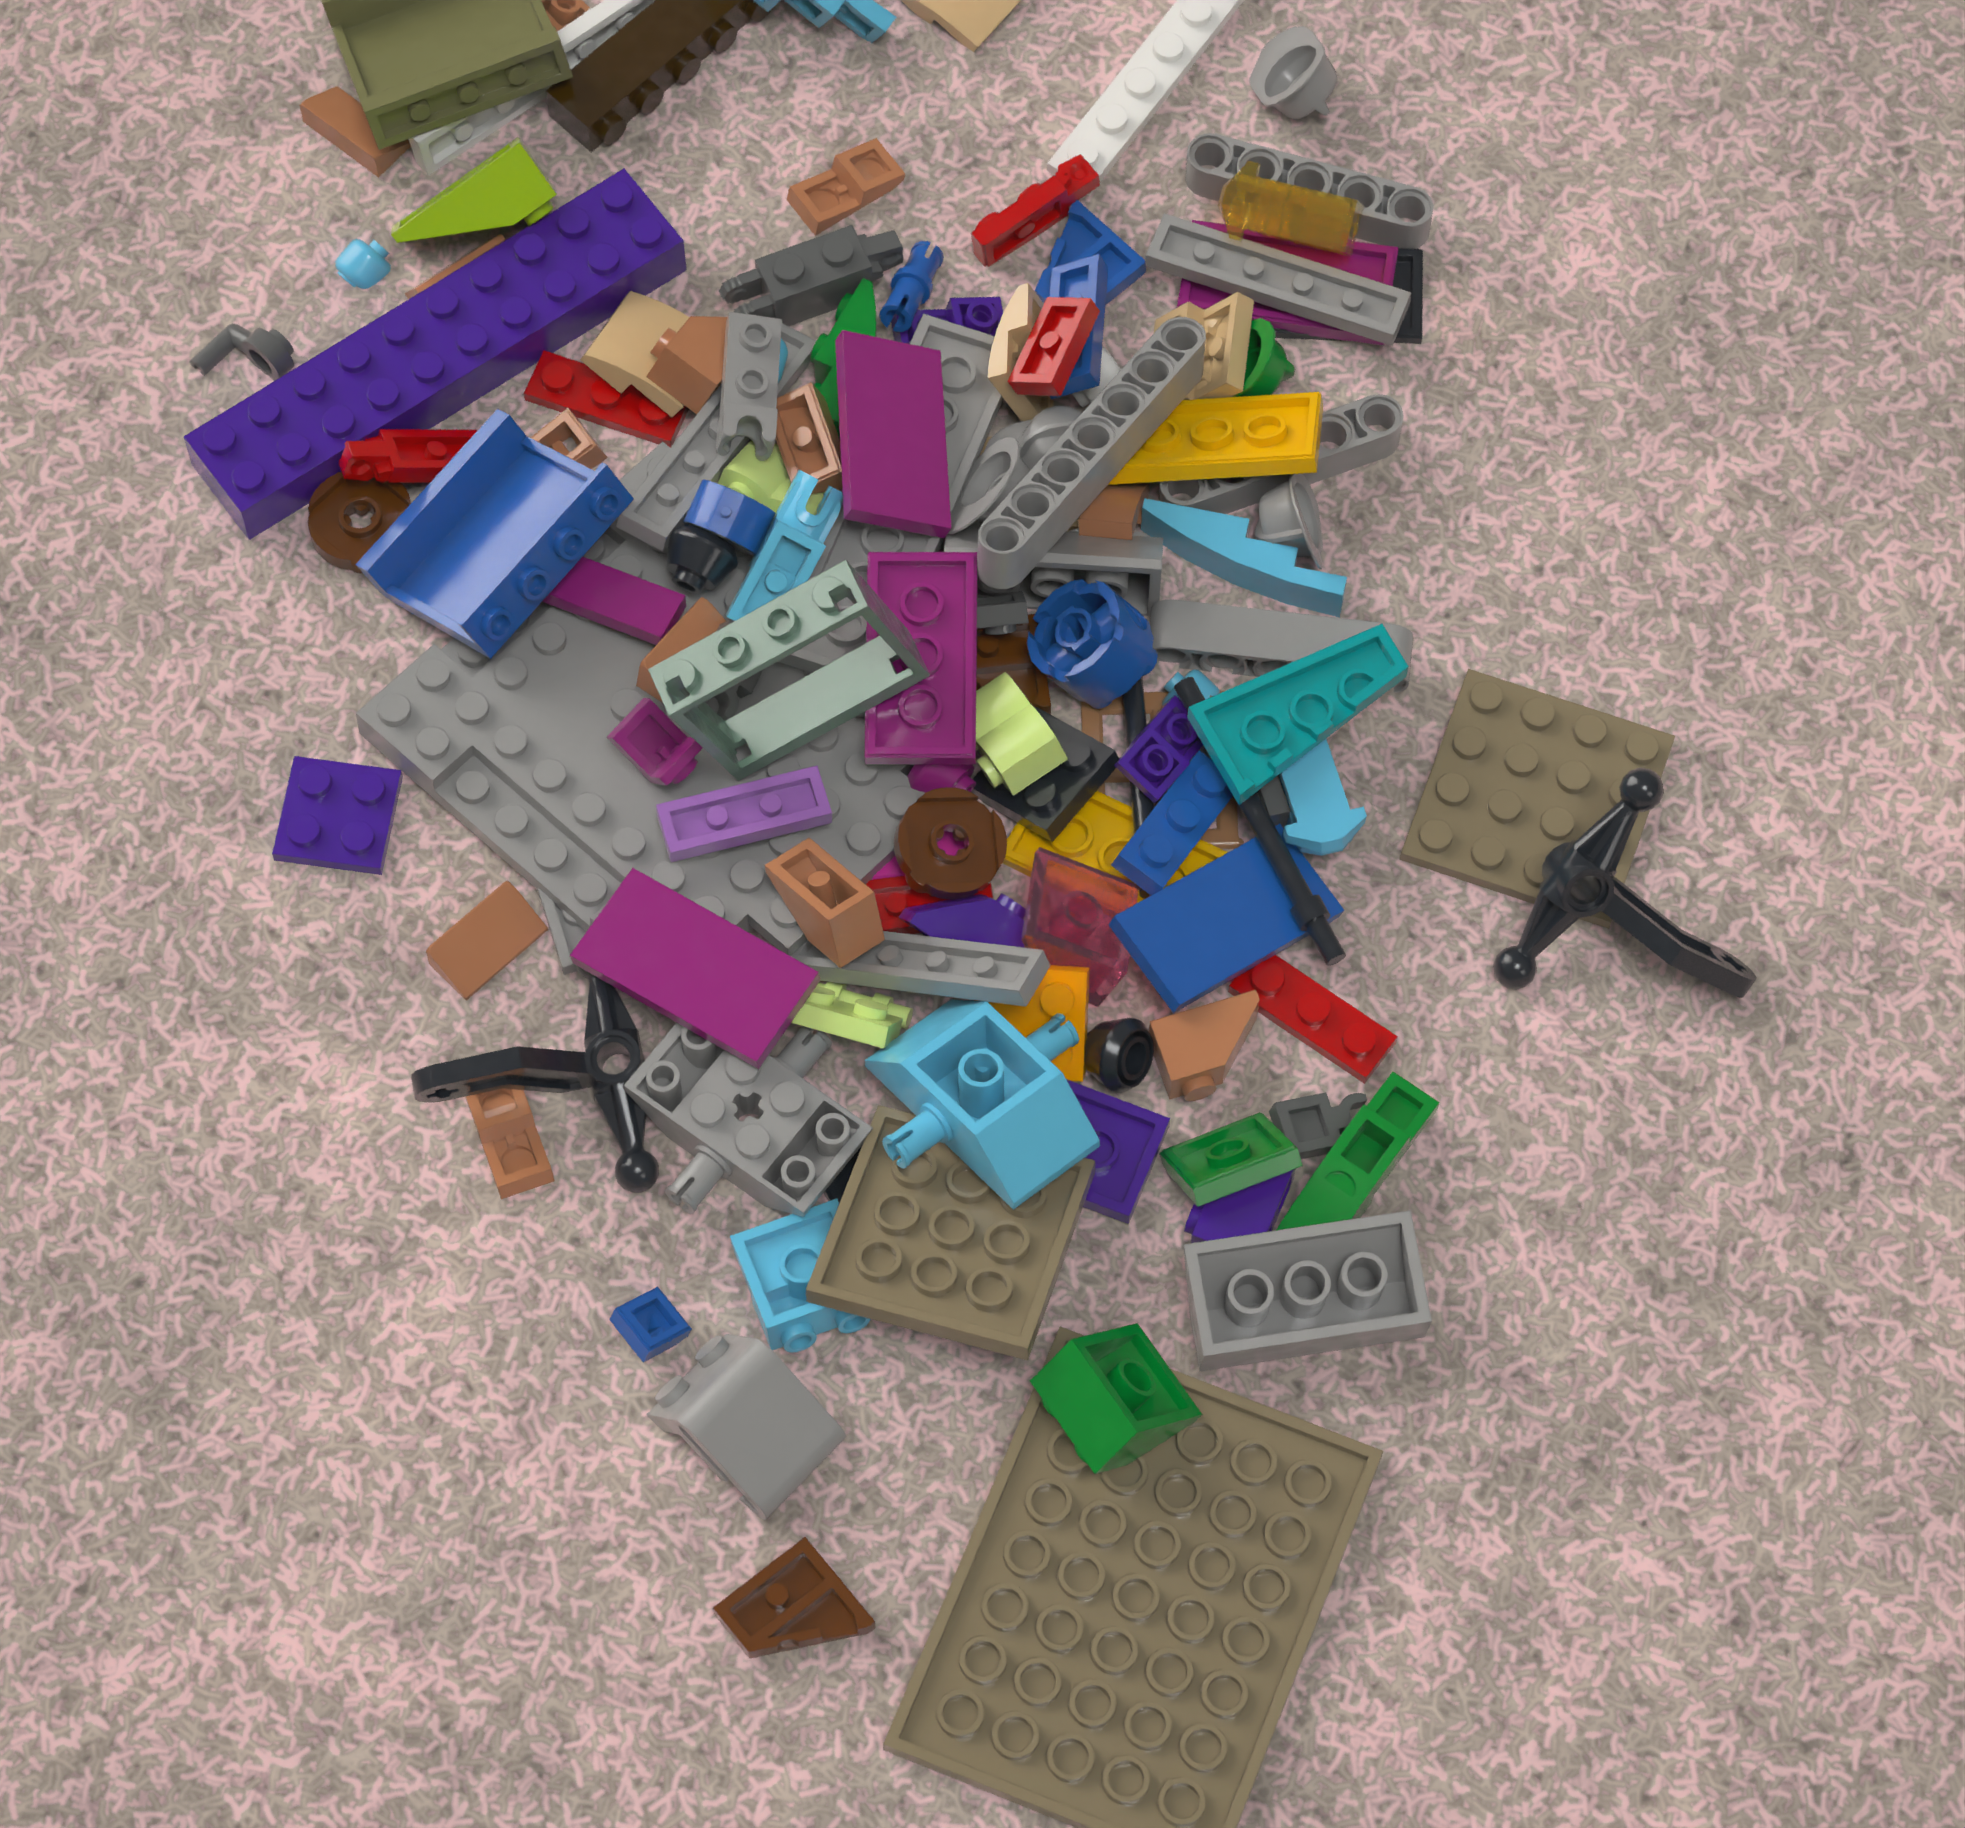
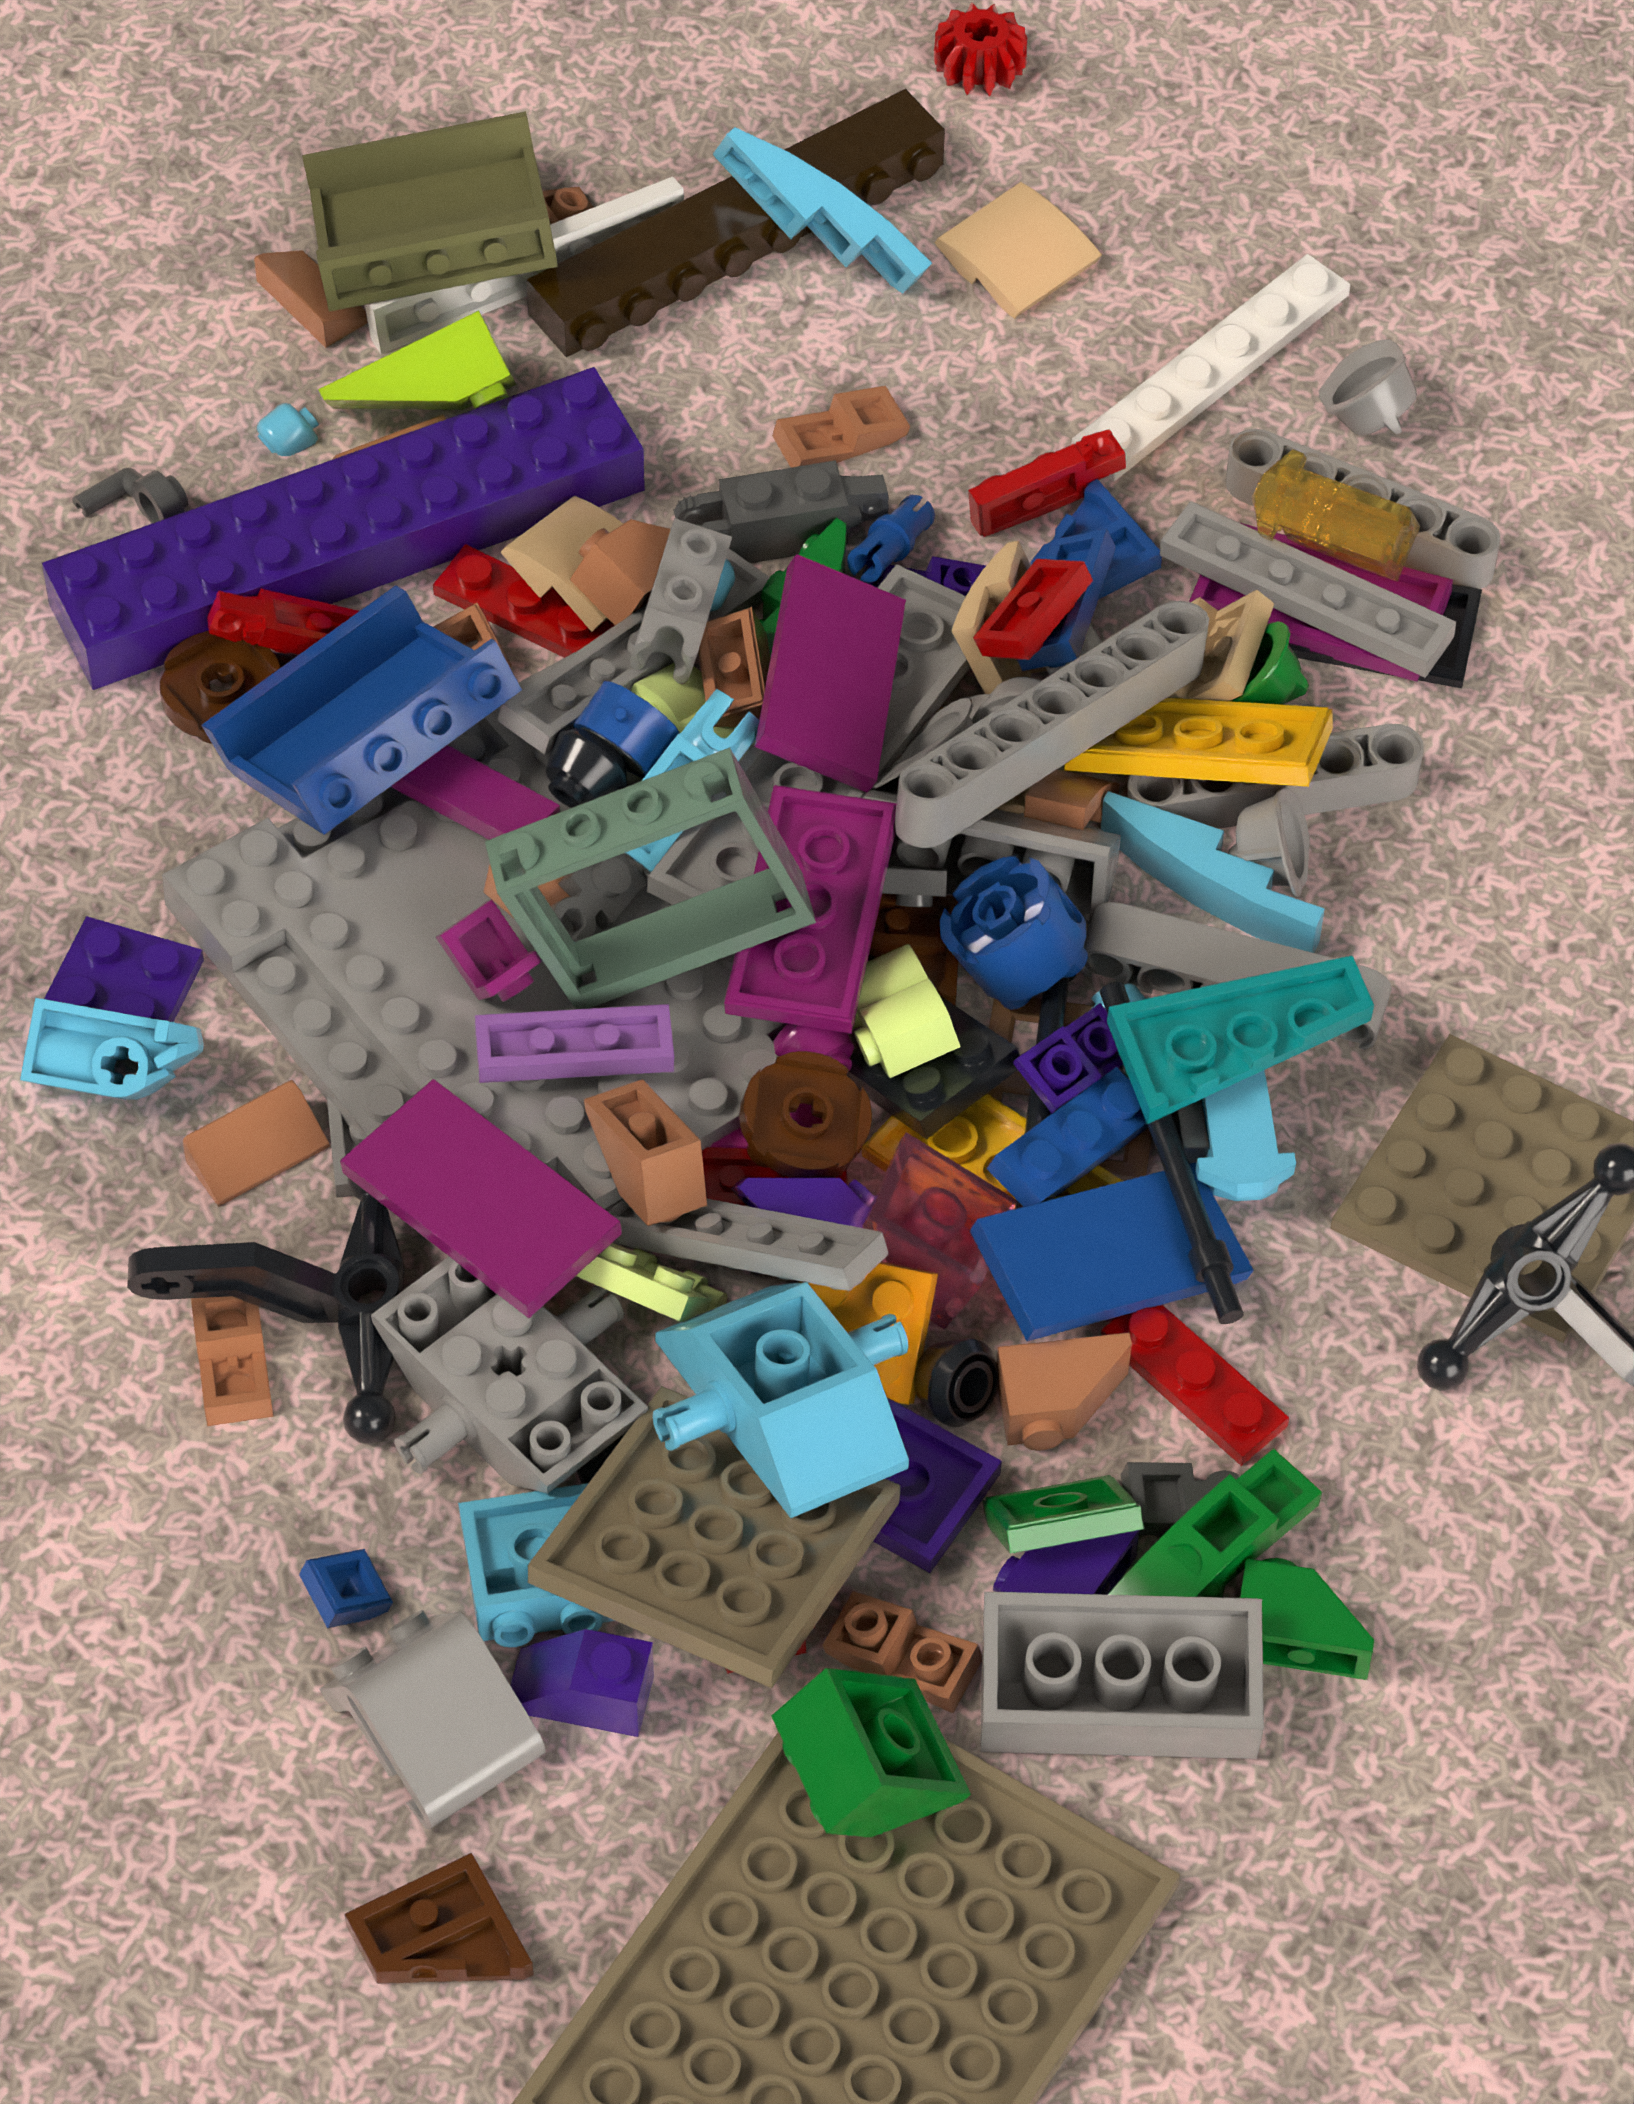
camera: 10 degrees right, 10 degrees down
(317, 880) = (80, 1046): none -> medium azure piece
(865, 1370) = (587, 1680): none -> dark purple slope
(1113, 1296) = (888, 1641): none -> nougat slope
(1443, 1212) = (1305, 1621): none -> green slope

